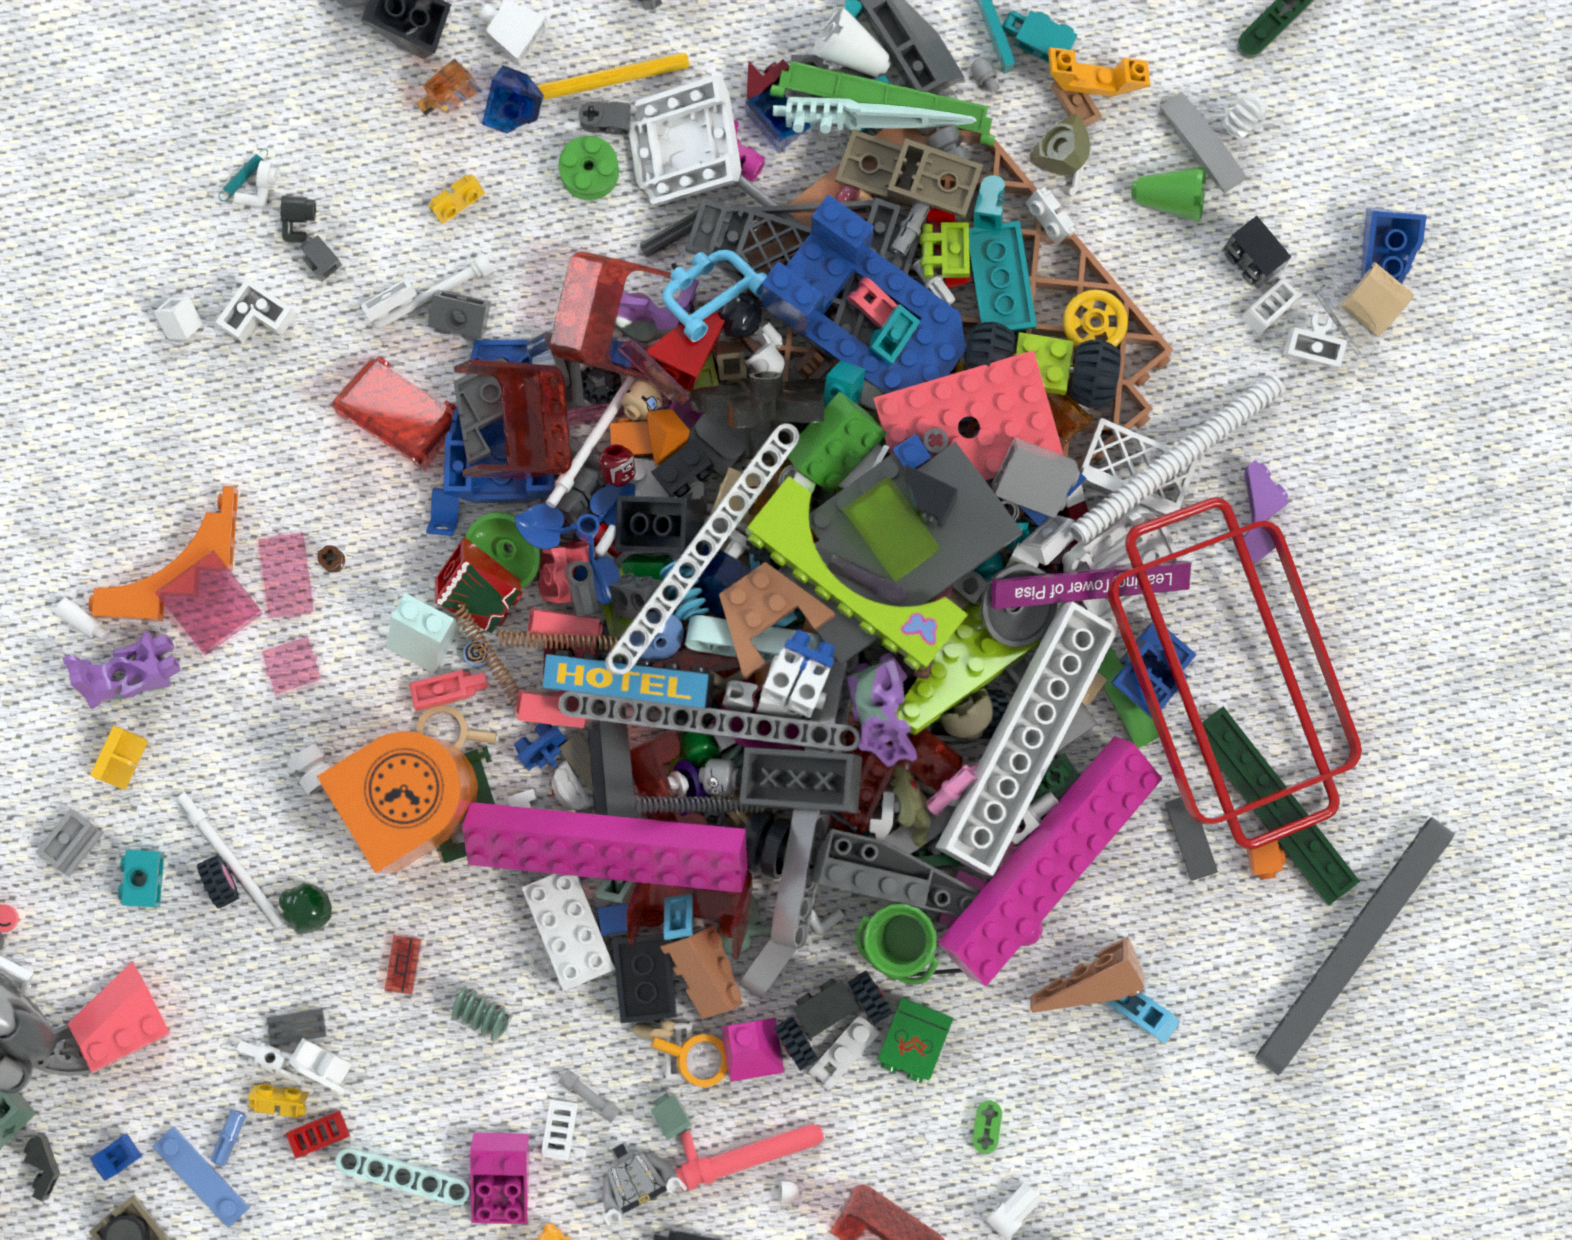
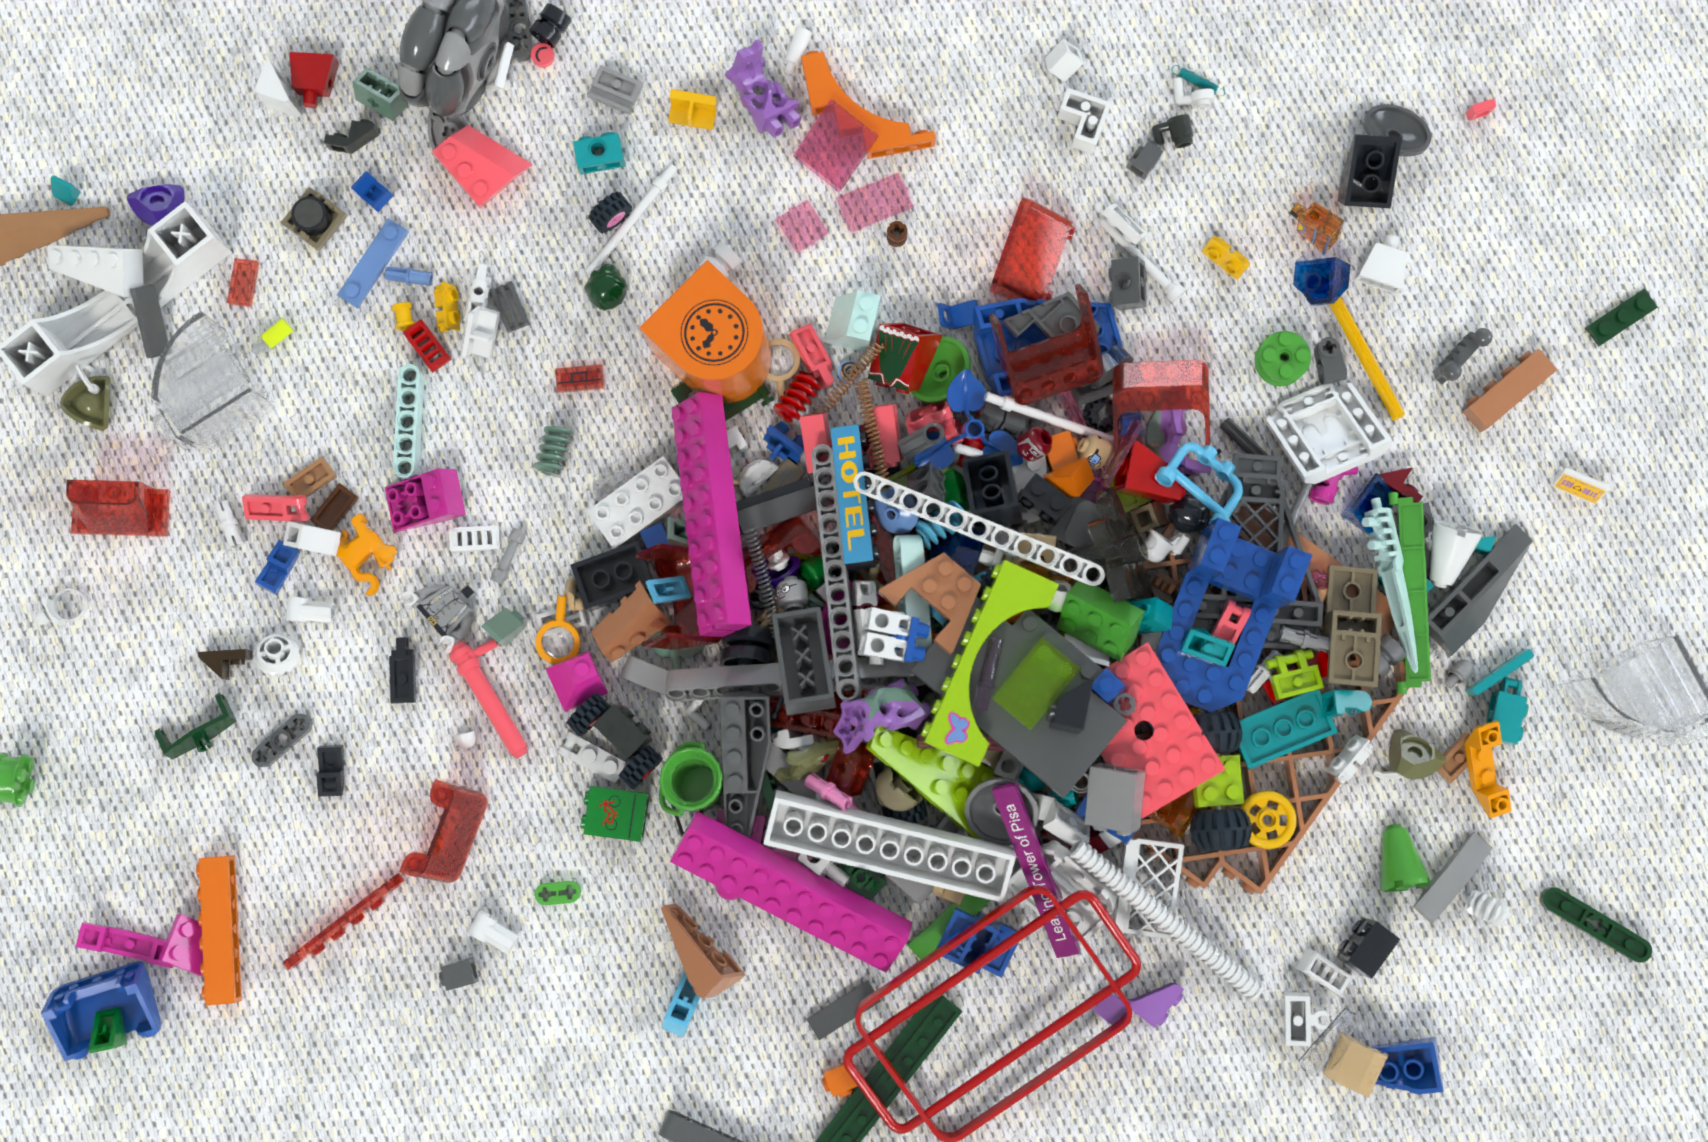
camera: 80 degrees right, 0 degrees up
(275, 1154) = (402, 315): none -> yellow bush
(490, 718) = (796, 395): none -> red piece

